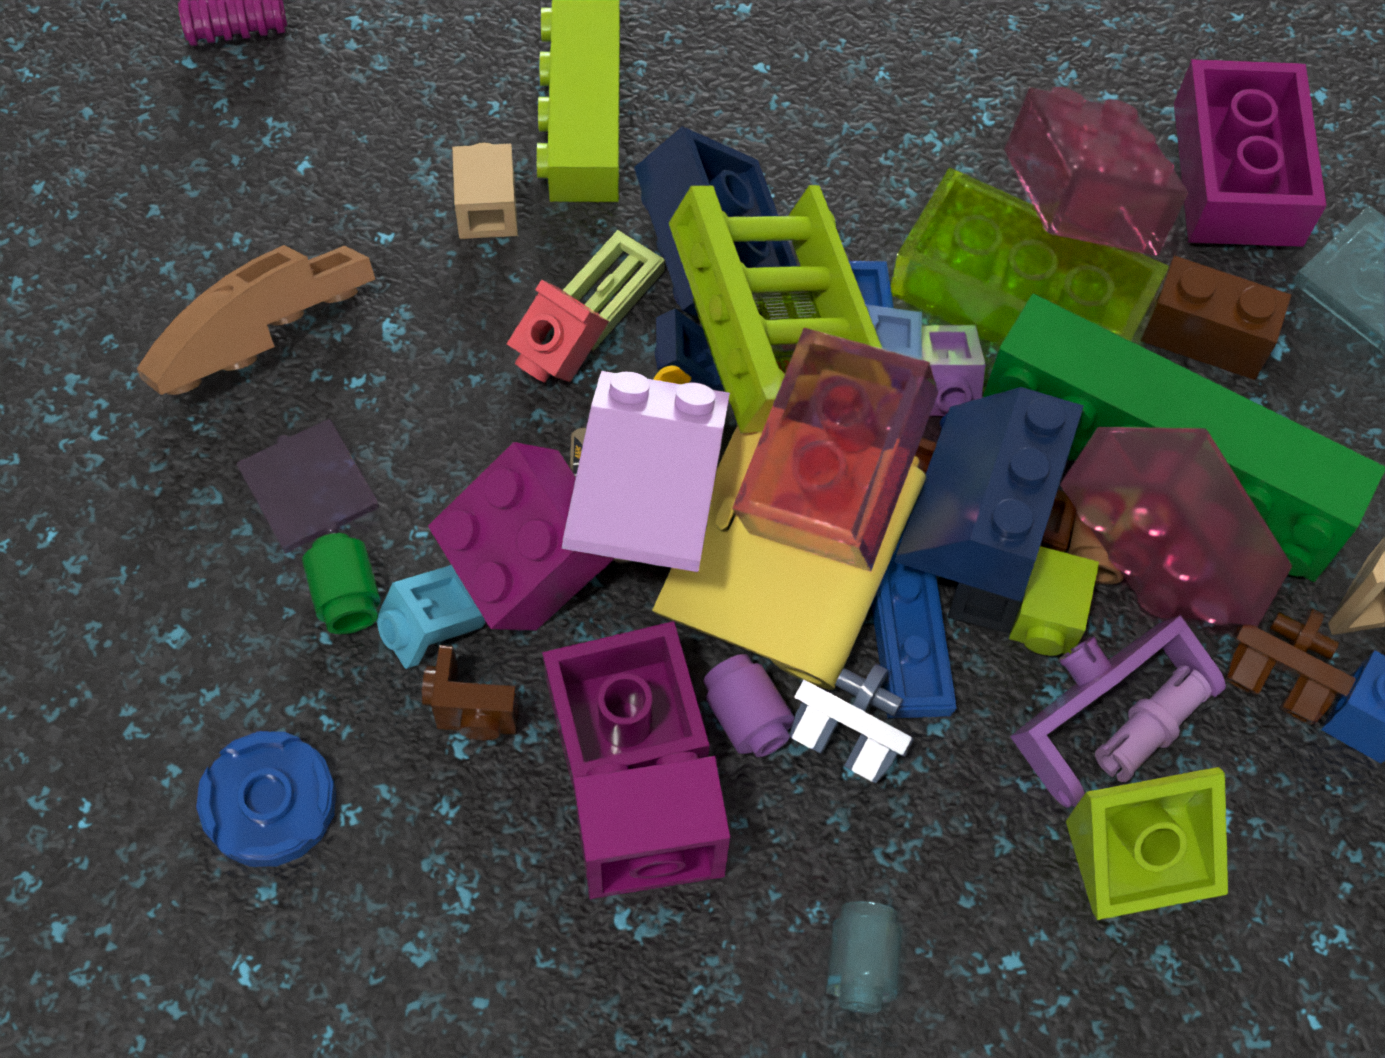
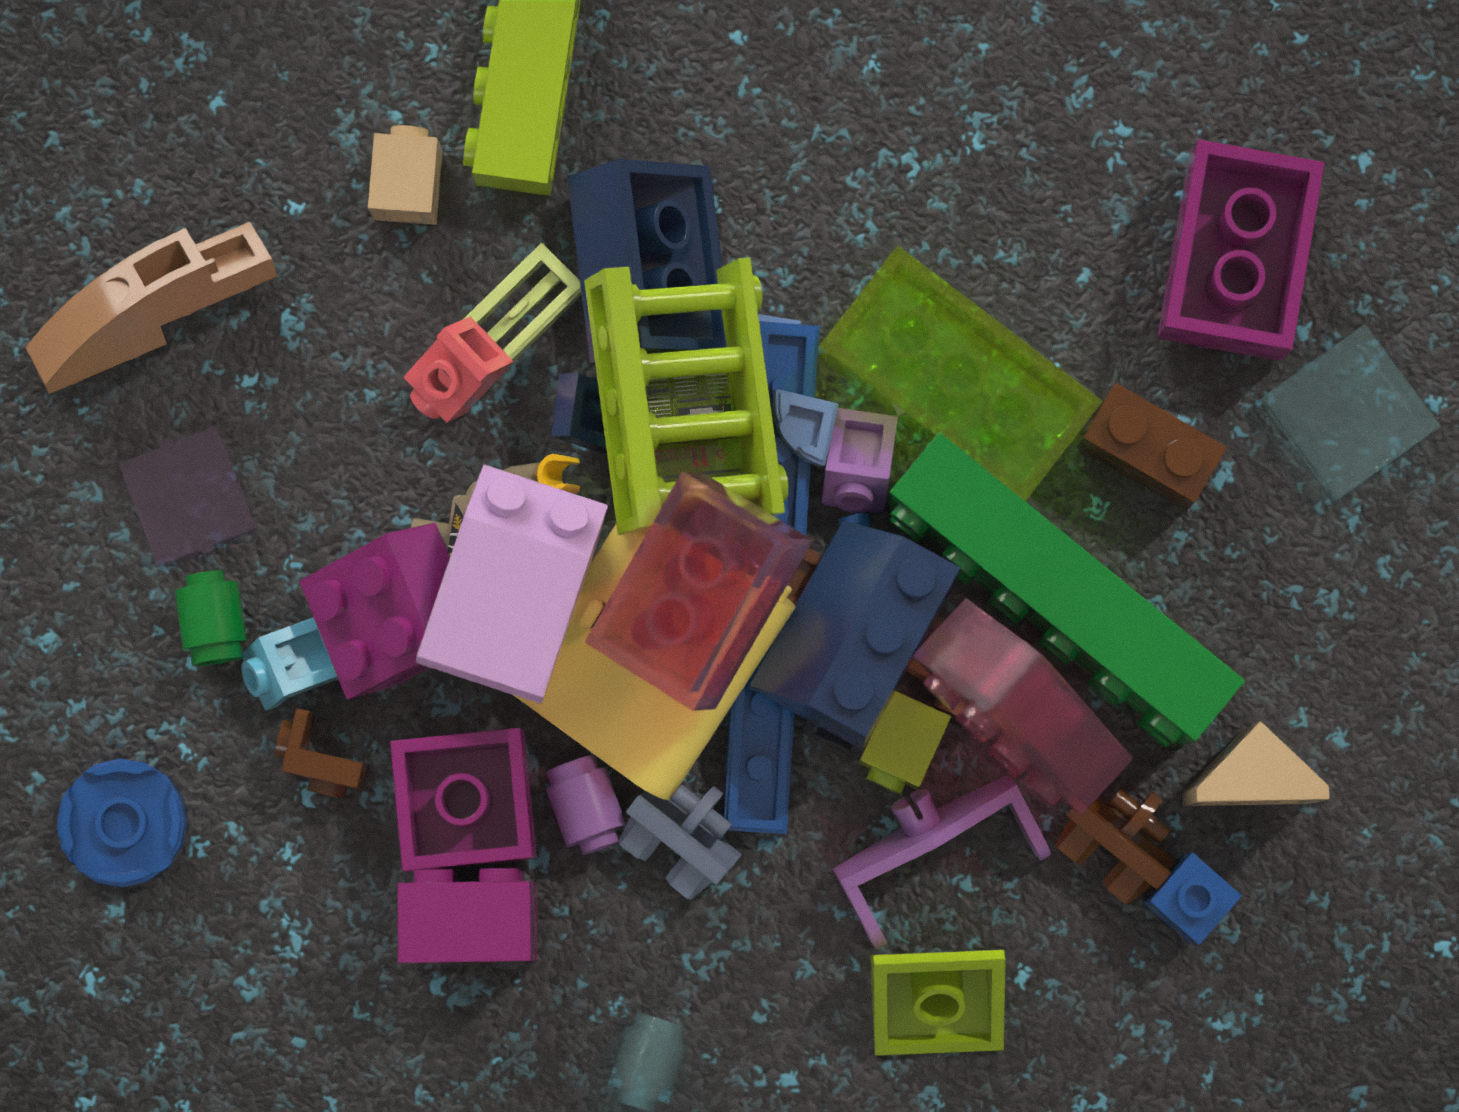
camera: 15 degrees right, 20 degrees up
(1094, 171) = (1050, 272): clear pink brick -> none
(1153, 723) = (972, 878): lavender pin -> none

